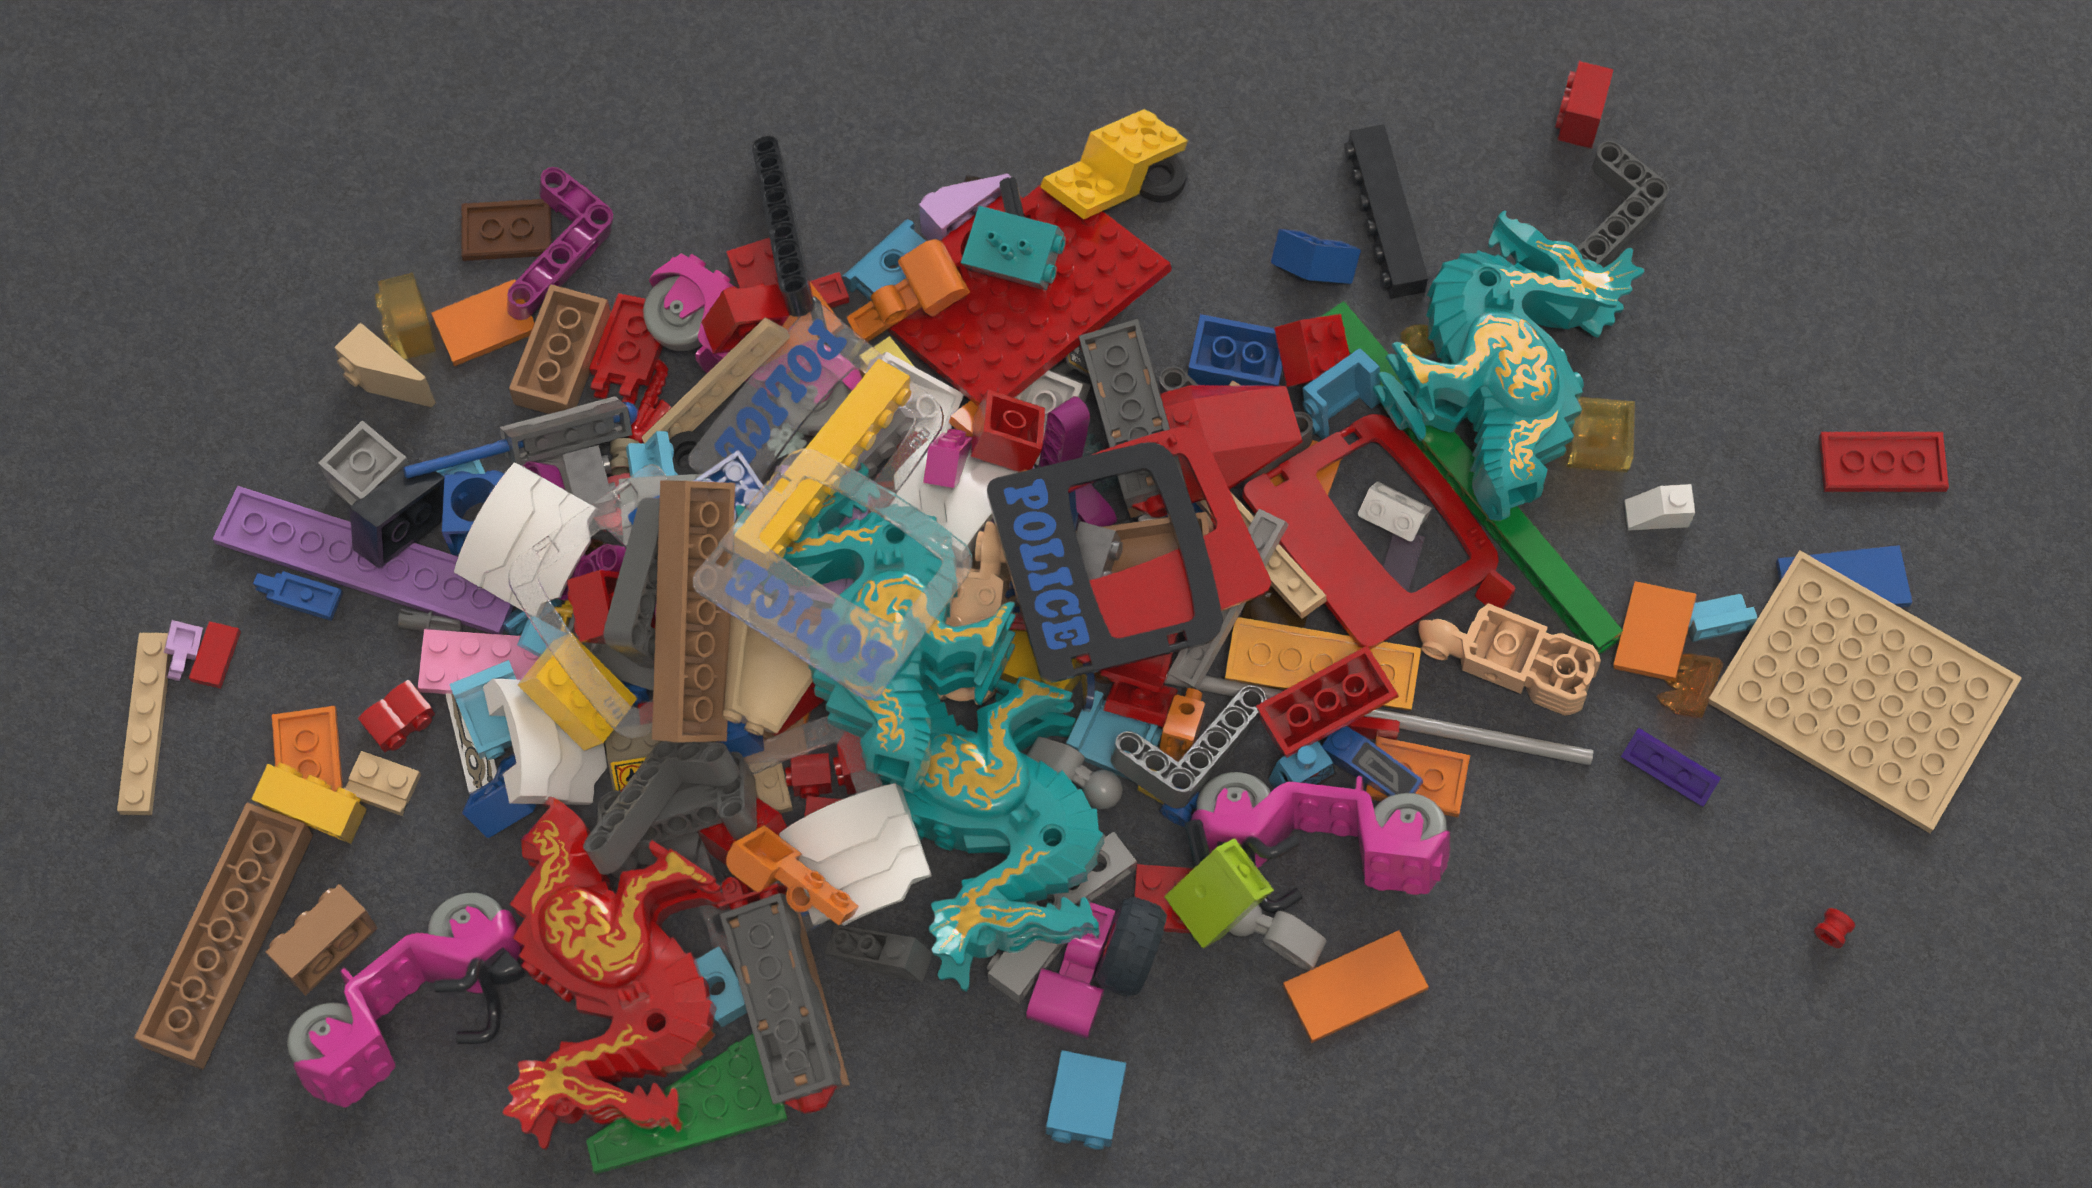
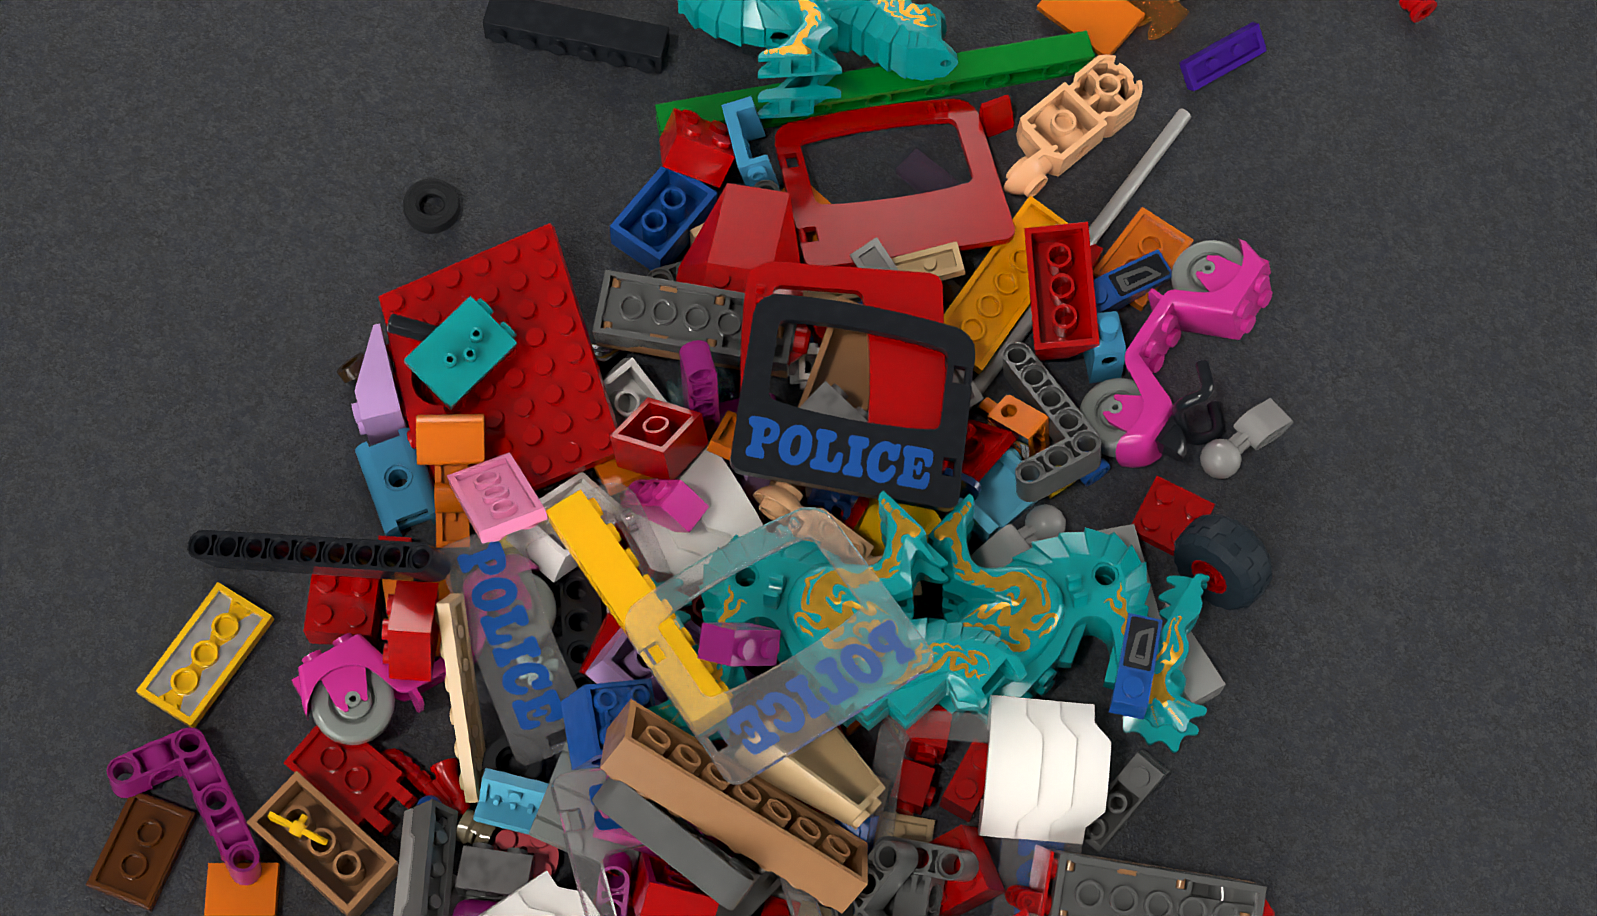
camera: 70 degrees left, 0 degrees up
(560, 321) = (297, 827): none -> yellow piece
(681, 196) = (205, 655): none -> yellow piece
(766, 858) = (1022, 853): orange plate -> none
(820, 545) = (739, 644): none -> magenta brick
(884, 325) = (497, 498): none -> bright pink plate
(973, 888) = (1136, 666): none -> blue slope
(1067, 997) = (1234, 646): dark pink plate -> none
(1085, 1100) = (1345, 669): dark azure panel -> none
(1114, 163) = (404, 234): yellow bracket -> none
(1218, 889) = (1206, 458): lime piece -> none
(1315, 257) = (592, 113): blue panel -> none
(1355, 986) = (1319, 396): orange tile -> none
(1393, 511) = (881, 159): white bracket -> none
(1417, 340) = (721, 67): clear yellow wheel -> none

